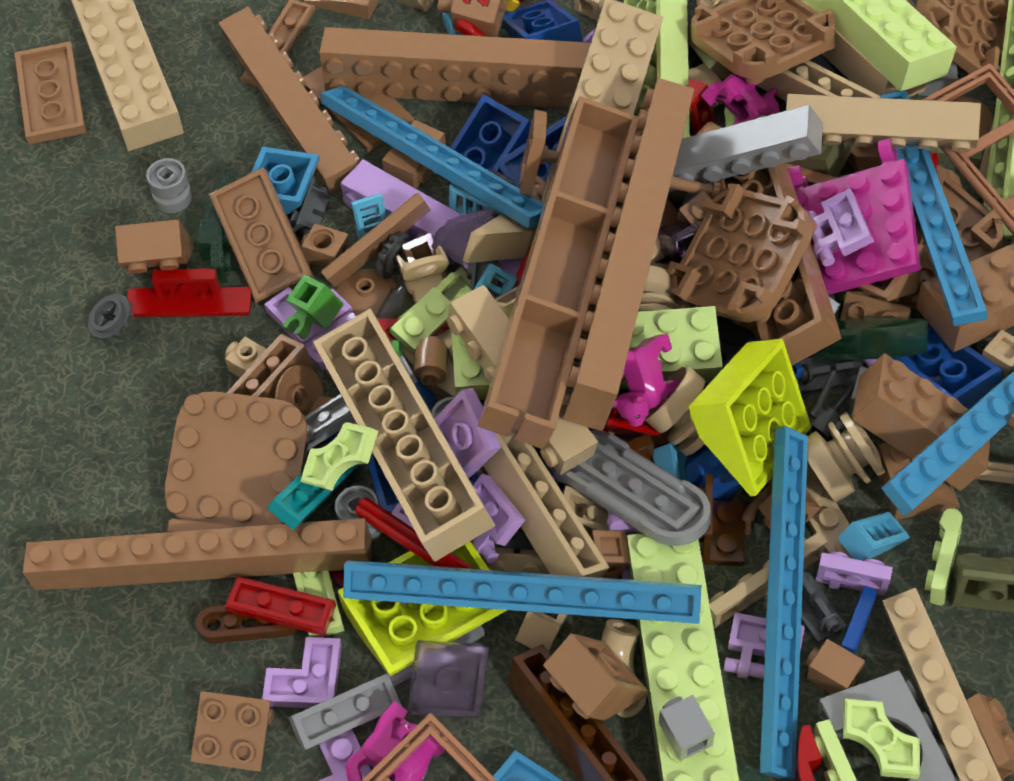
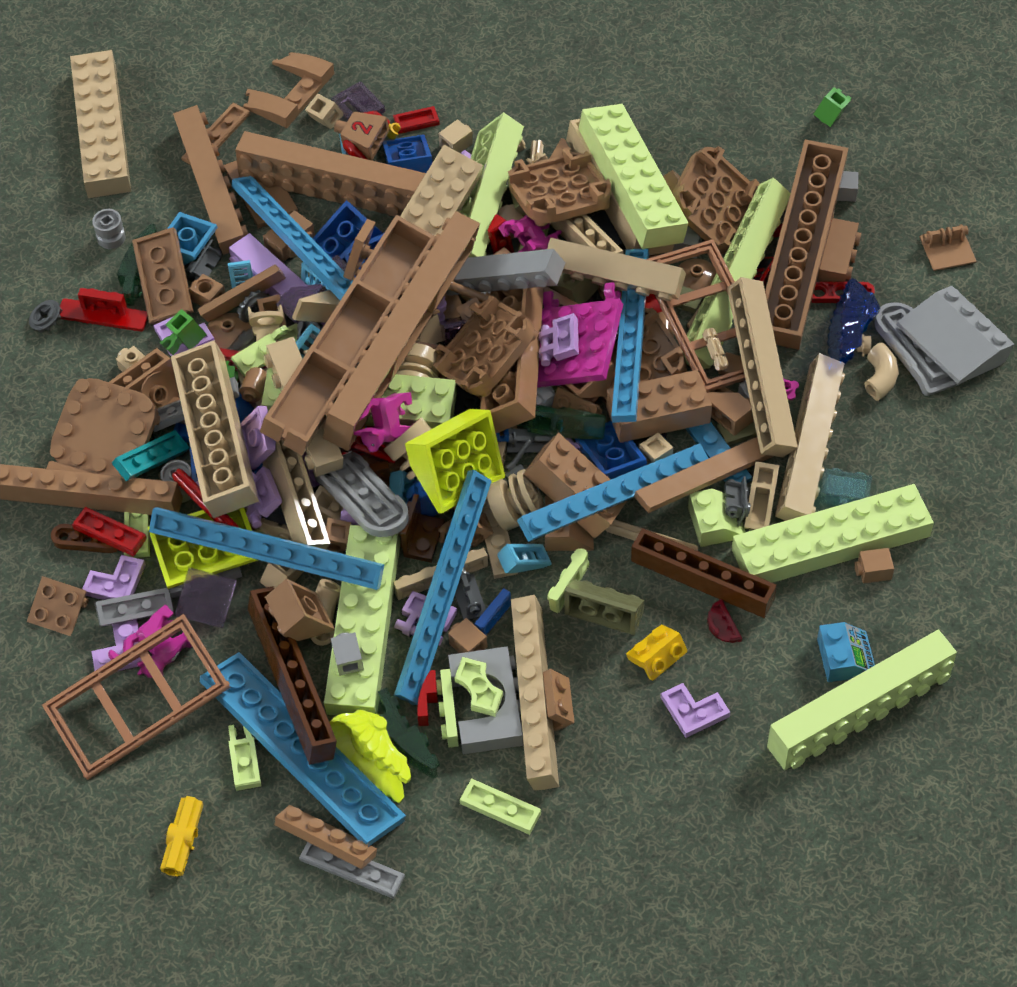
camera: 10 degrees right, 0 degrees up
(50, 93) = (42, 145): medium nougat plate -> none
(153, 245) = (83, 270): medium nougat slope -> none
(349, 448) = (171, 434): yellowish green tile -> none
(842, 571) = (495, 578): lavender plate -> none

